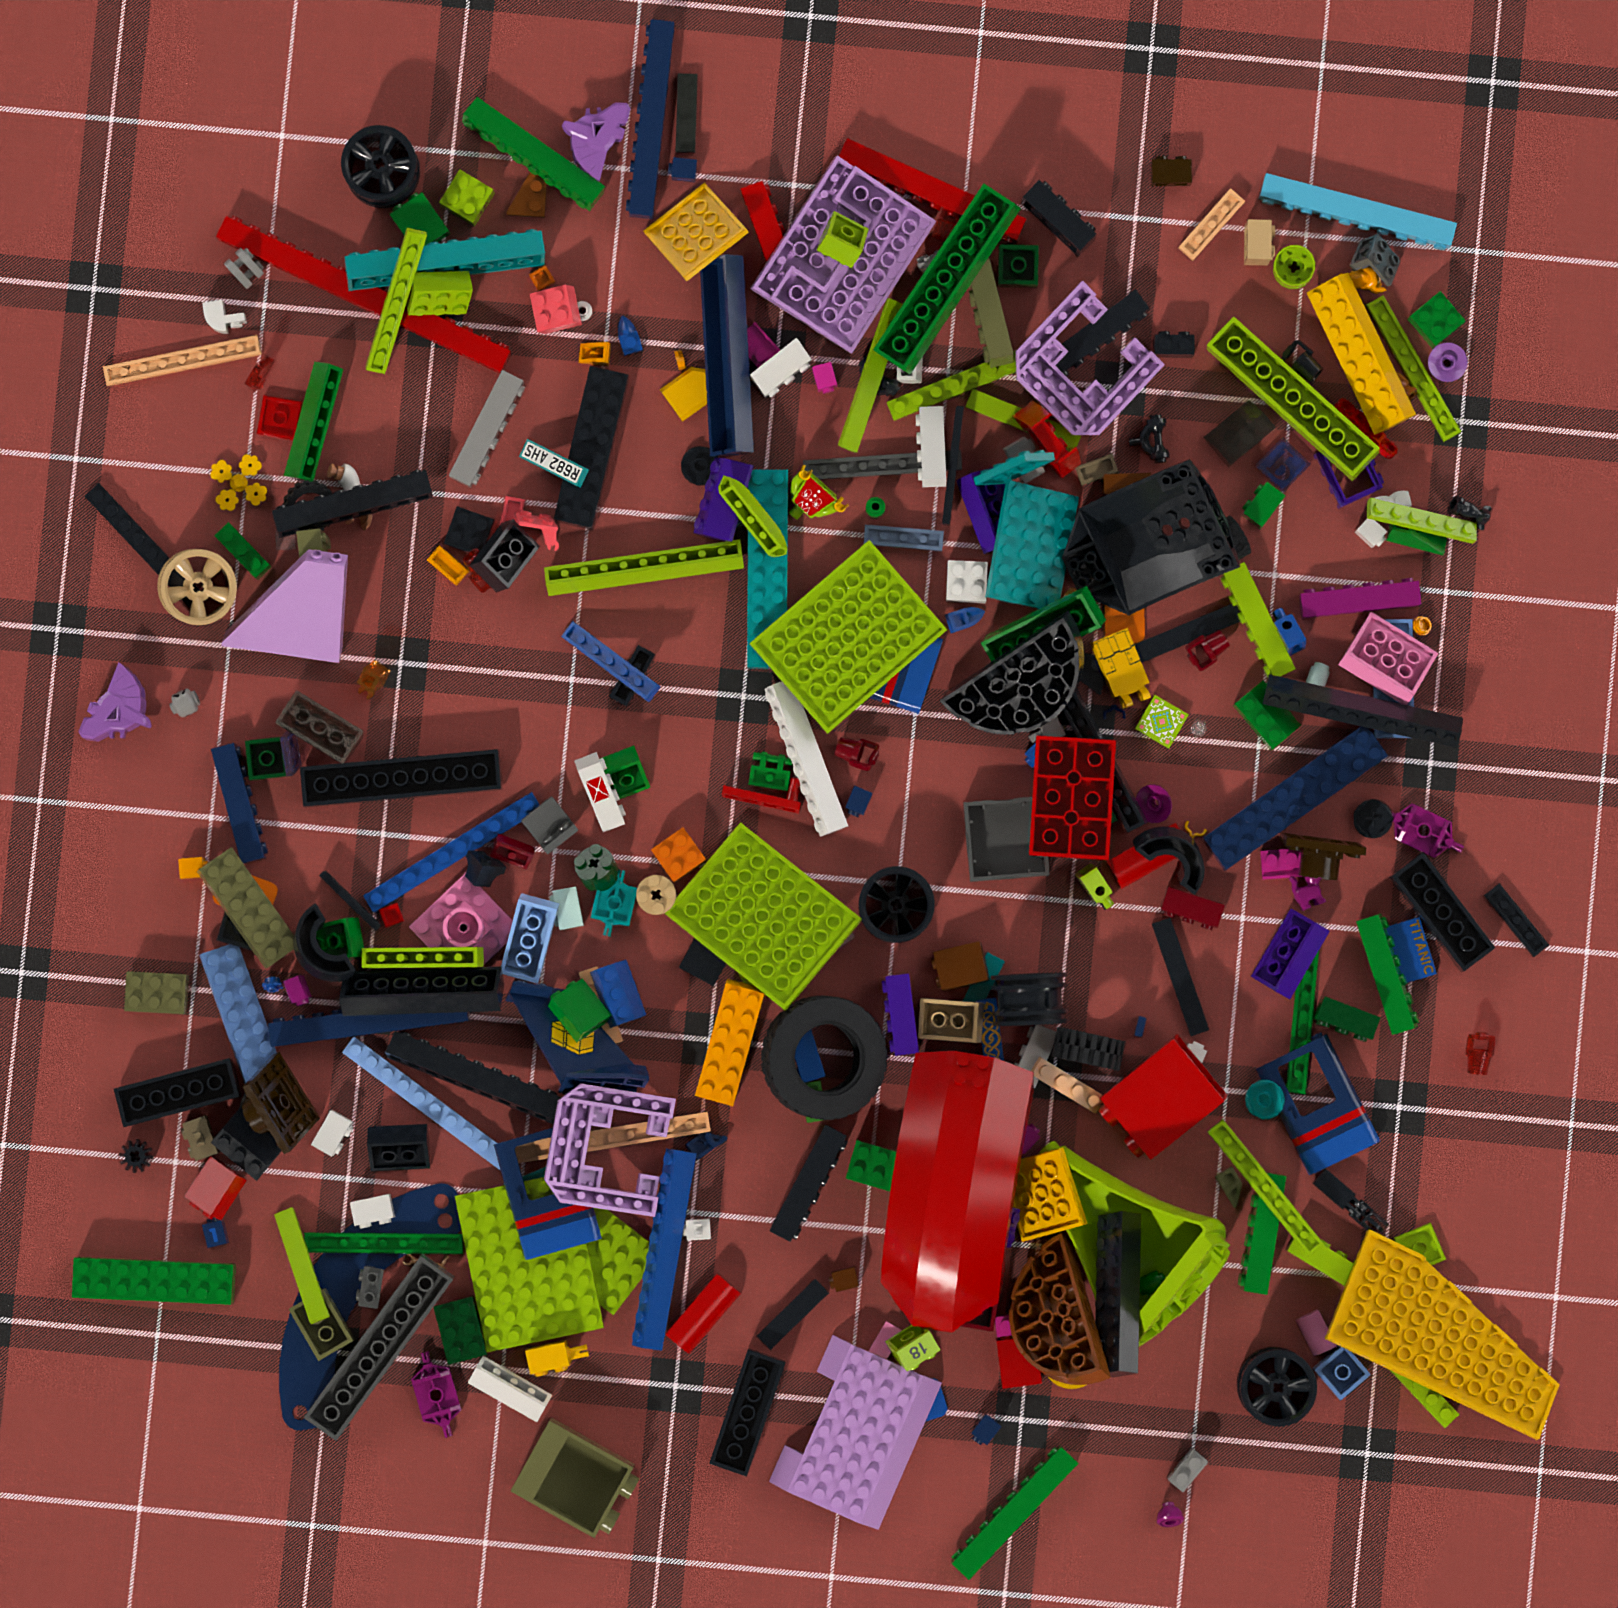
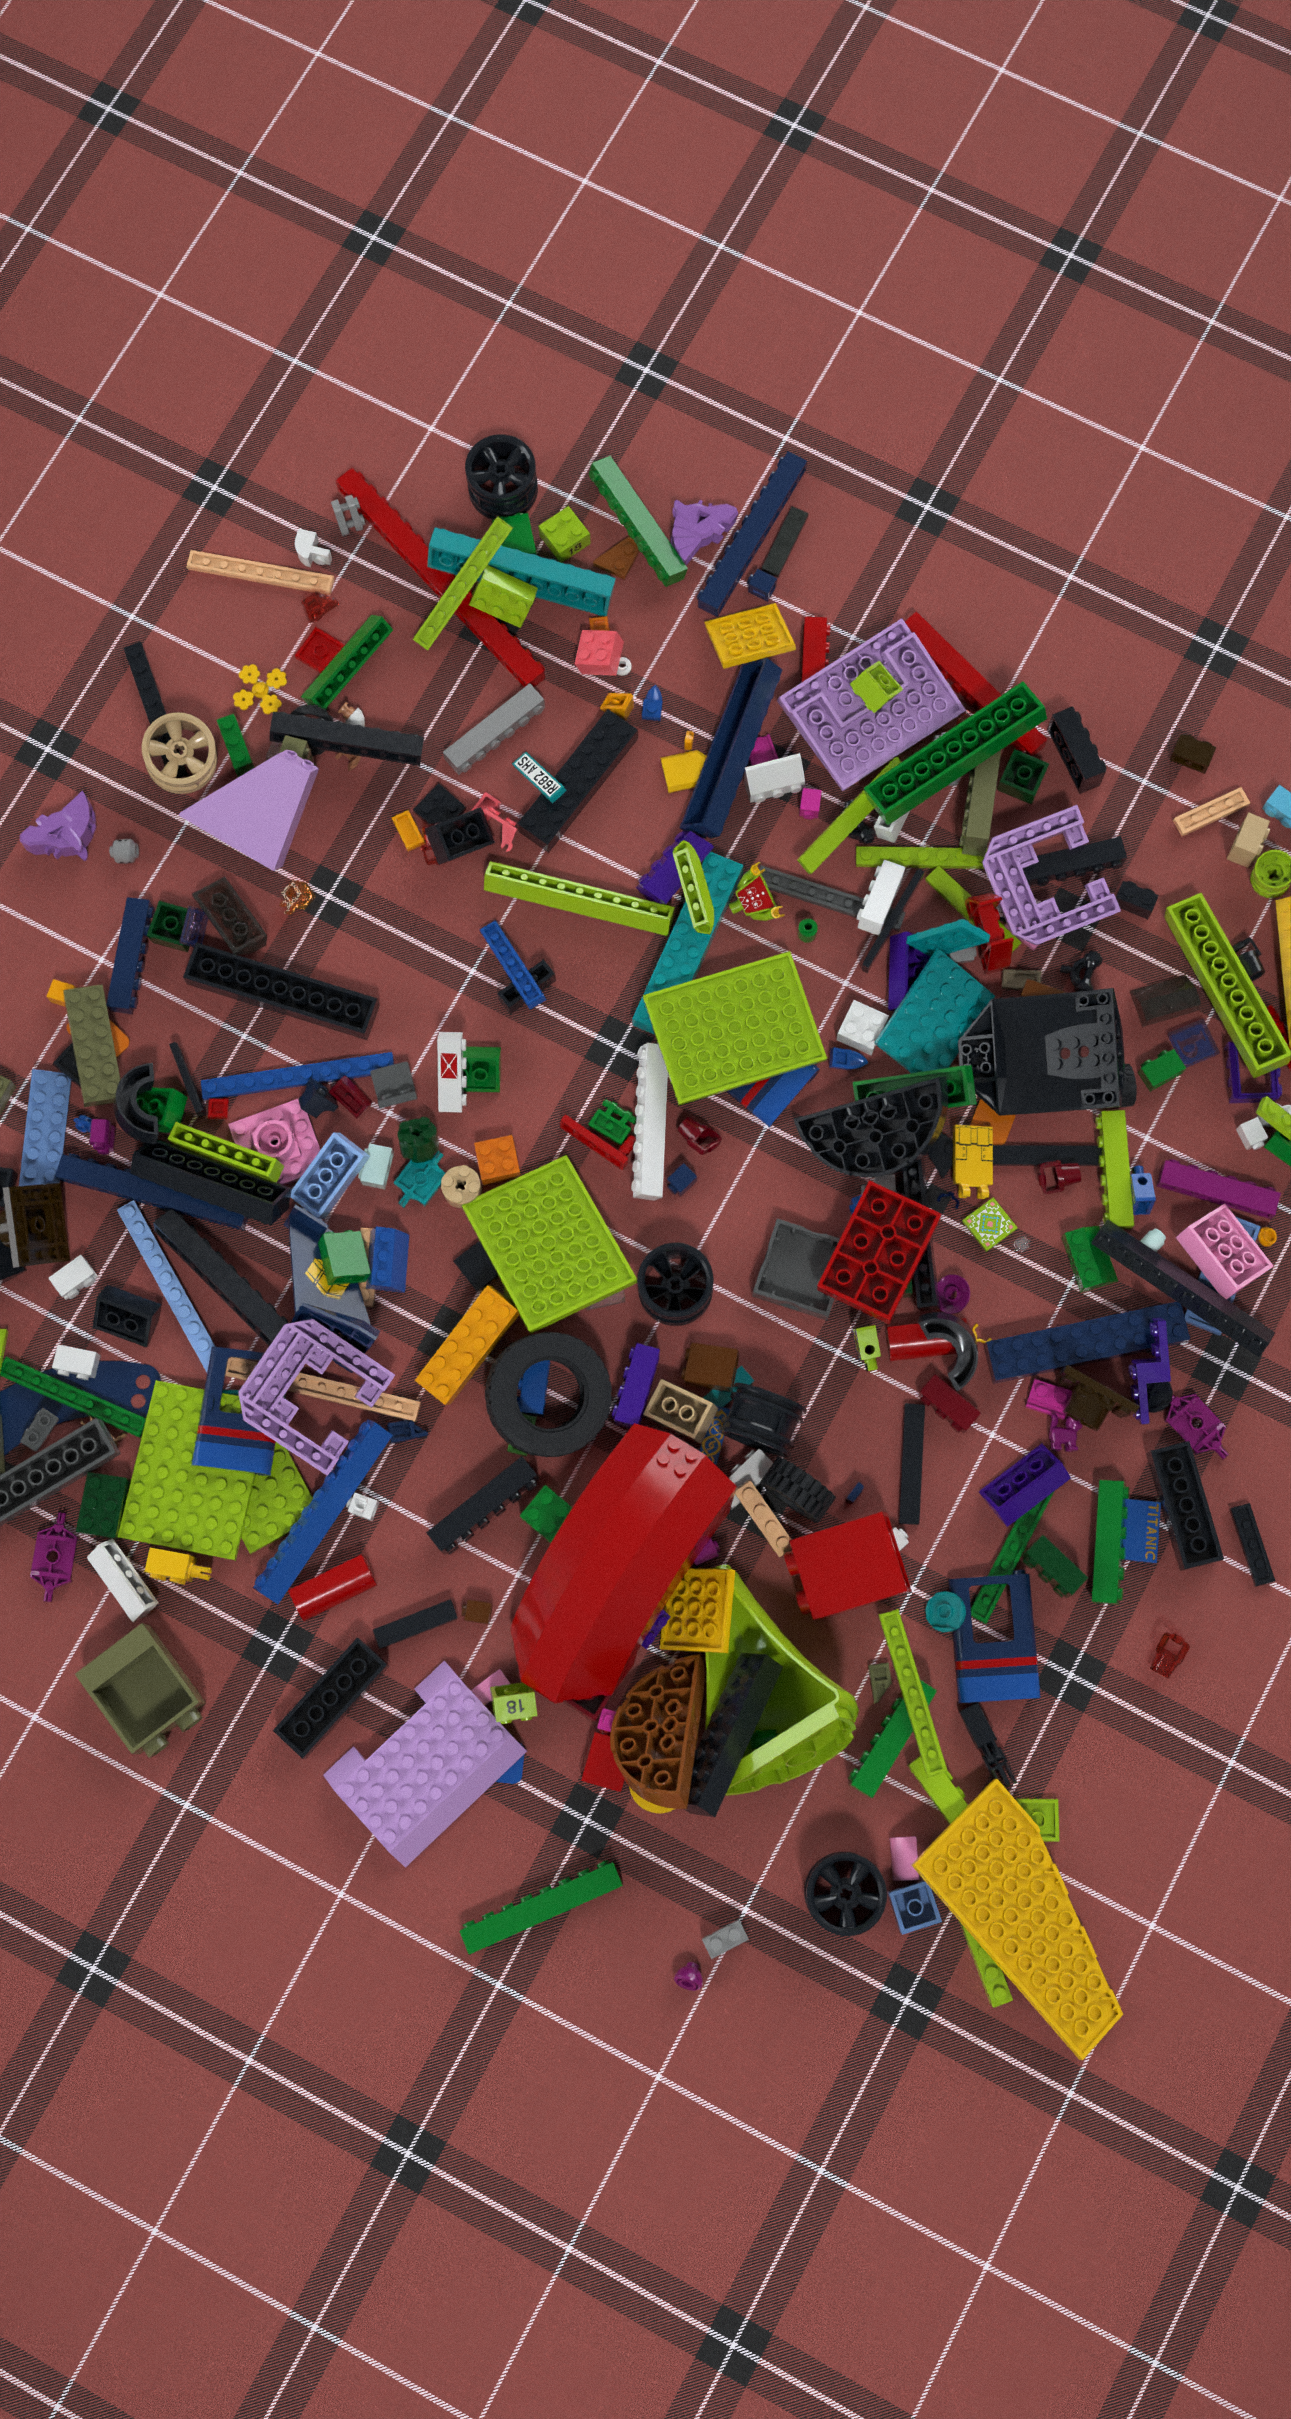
camera: 25 degrees right, 10 degrees down
(696, 465) = (663, 833): black tile -> none
(904, 537) = (823, 968): sand blue plate -> none
(985, 1429) = (548, 1814): dark blue brick -> none
(1362, 803) = (1150, 1369): none -> dark purple bracket

